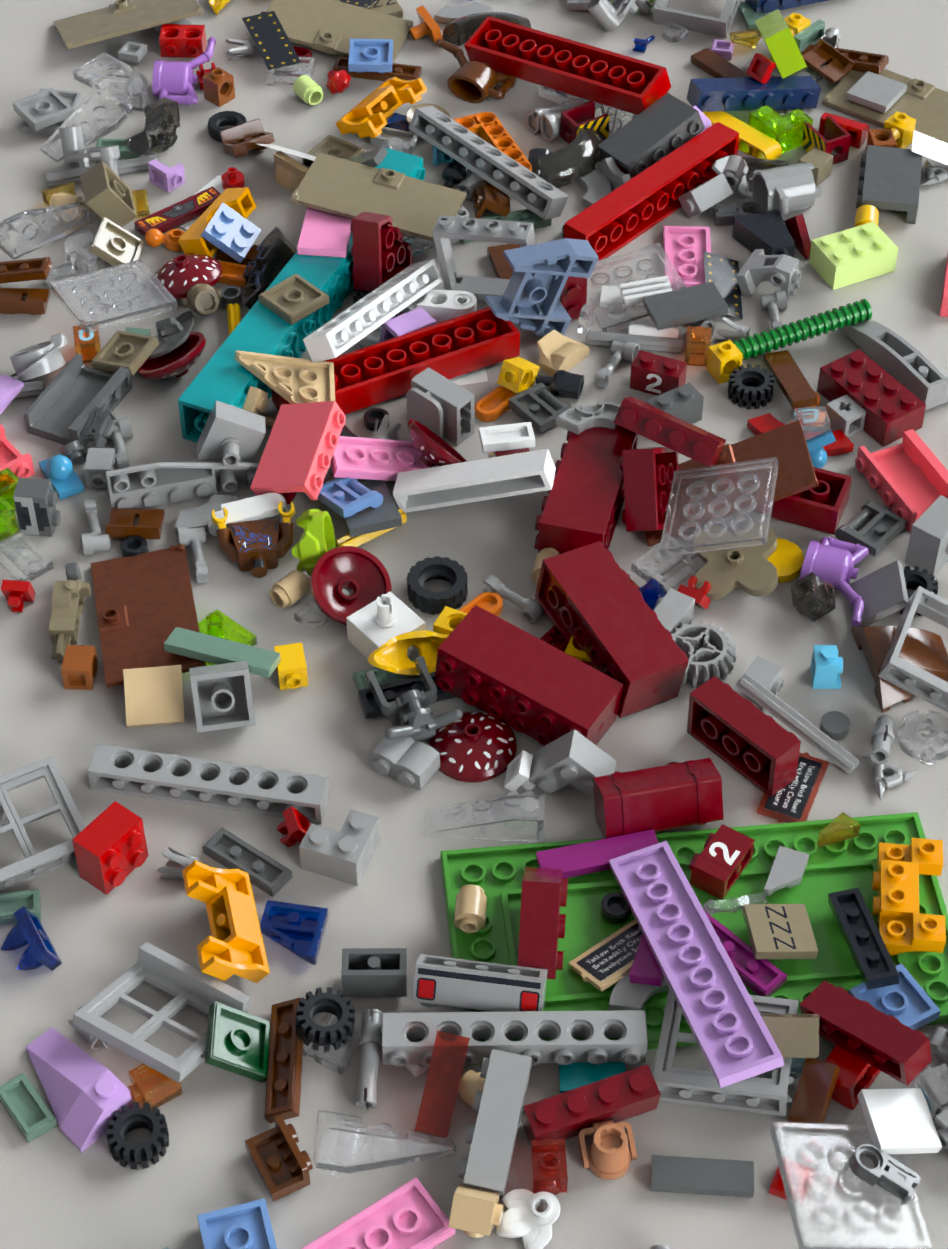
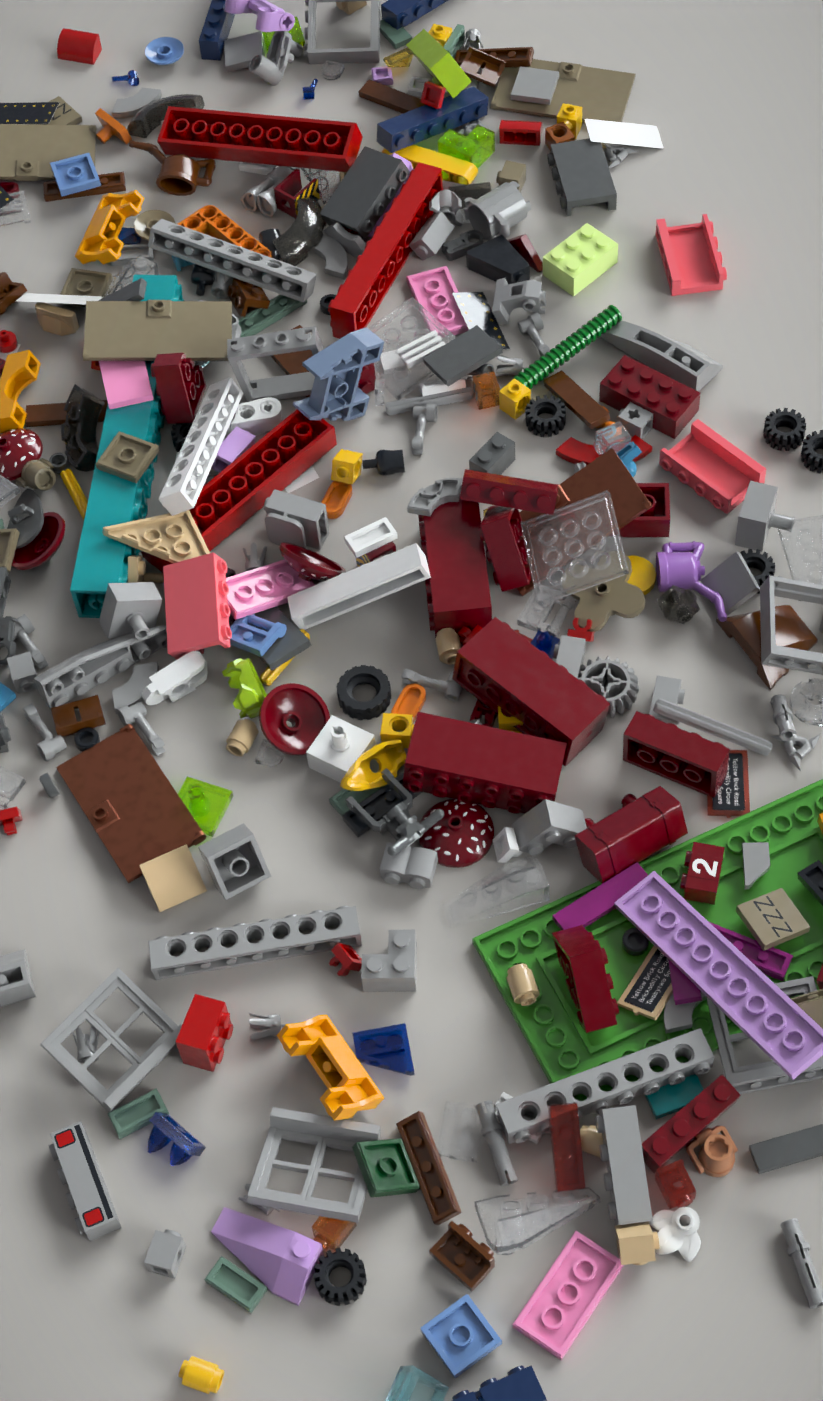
camera: 15 degrees left, 10 degrees up
(65, 618) = (61, 827): dark tan piece -> none
(79, 667) = (95, 871): dark orange brick -> none
(221, 651) = (214, 819): sand green tile -> none
(231, 232) = (34, 400): plate -> none
(232, 273) = (50, 437): orange tile -> none
(237, 854) = (317, 1002): dark grey tile -> none
(256, 543) = (193, 703): reddish brown torso -> none
(292, 667) = (275, 810): yellow brick -> none
(308, 90) = (32, 227): yellowish green brick -> none
(321, 1034) = (454, 1109): black tyre -> none
(338, 81) = (56, 209): red piece -> none
(371, 416) = (238, 543): black tile -> none
(374, 972) = (469, 1067): dark grey brick -> none
(478, 985) = (560, 1051): light grey brick -> none
(534, 410) = (375, 496): dark grey plate -> none
(560, 352) = (371, 432): tan slope -> none
(656, 373) = (464, 429): dark red brick -> none
(733, 904) = (726, 907): clear piece -> none
(826, 667) = (713, 666): medium azure brick -> none
(834, 138) = (516, 147): dark red piece -> none
(835, 725) = (739, 715): dark grey tile -> none
(840, 829) = (784, 809): clear yellow piece -> none
(866, 214) = (575, 218): yellow brick -> none
(877, 532) = (704, 524): dark grey plate -> none

